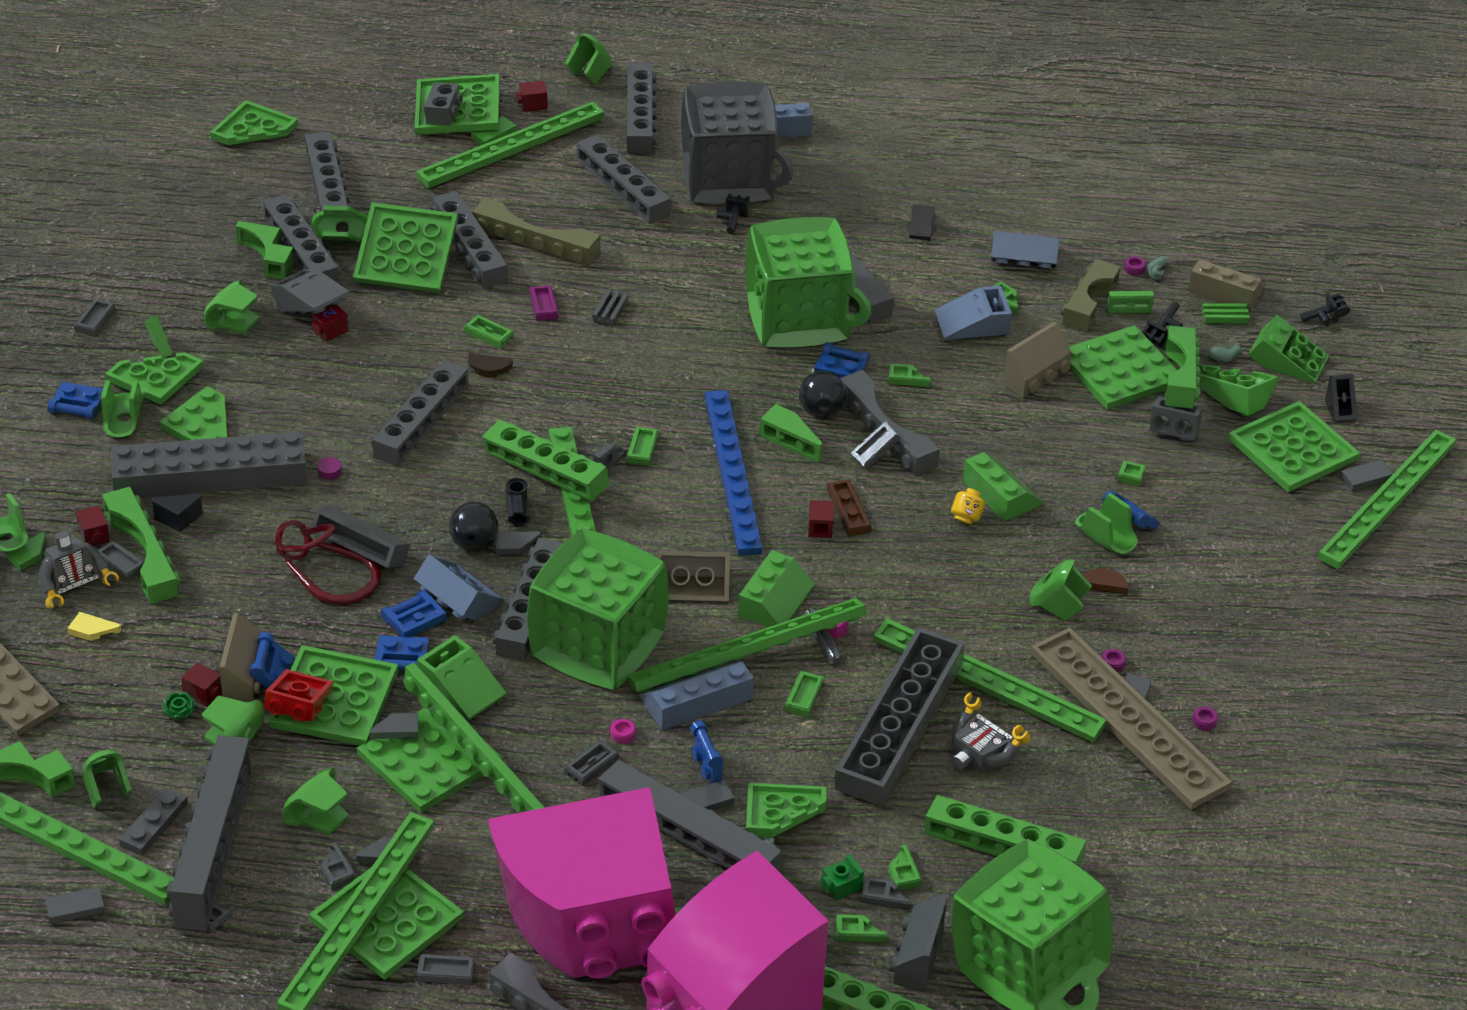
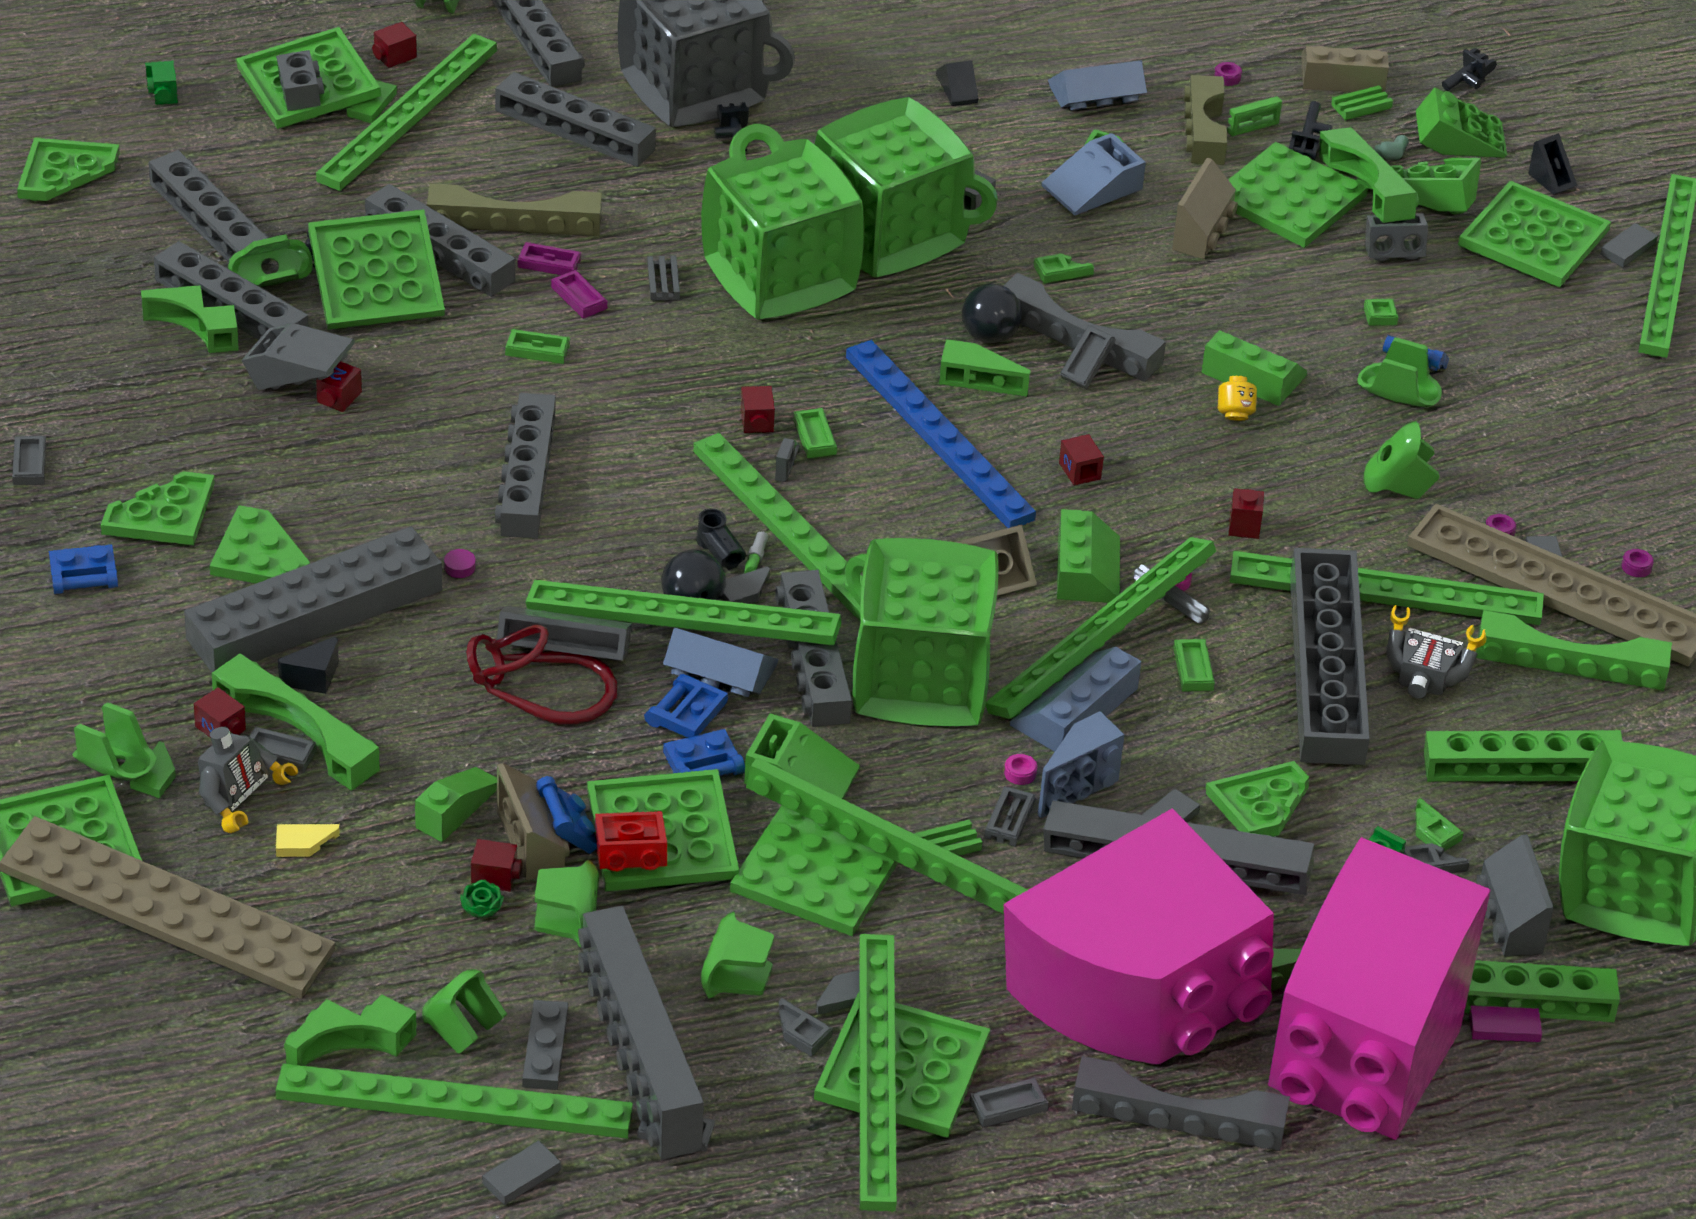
camera: 25 degrees left, 0 degrees up
(120, 404) = (161, 555): bright green piece -> none
(158, 336) = (132, 460): bright green tile -> none
(201, 632) = (452, 801): none -> bright green slope
(233, 309) = (208, 401): bright green piece -> none
(357, 83) = (162, 82): none -> green brick
(396, 726) = (769, 841): dark grey tile -> none
(445, 543) = (685, 612): none -> bright green plate
(489, 365) = (566, 386): dark brown tile -> none
(534, 271) = (548, 259): none -> magenta tile
(534, 766) = (954, 833): none -> bright green tile
(540, 519) = (756, 552): none -> light grey piece
(546, 460) = (725, 478): bright green brick -> none
(609, 417) = (757, 409): none -> dark red brick
(656, 739) = (1082, 763): none -> sand blue slope
(698, 289) = (781, 225): none -> bright green piece
(704, 752) = (1146, 766): blue plate -> none
(841, 366) = (966, 279): blue plate -> none
(849, 507) = (1115, 449): reddish brown tile -> none
(917, 593) = (1246, 513): none -> dark red brick
(1107, 580) = (1442, 439): reddish brown tile -> none
(1146, 793) = (1634, 662): none -> bright green arch
(1154, 268) = (1253, 70): sand green arm -> none

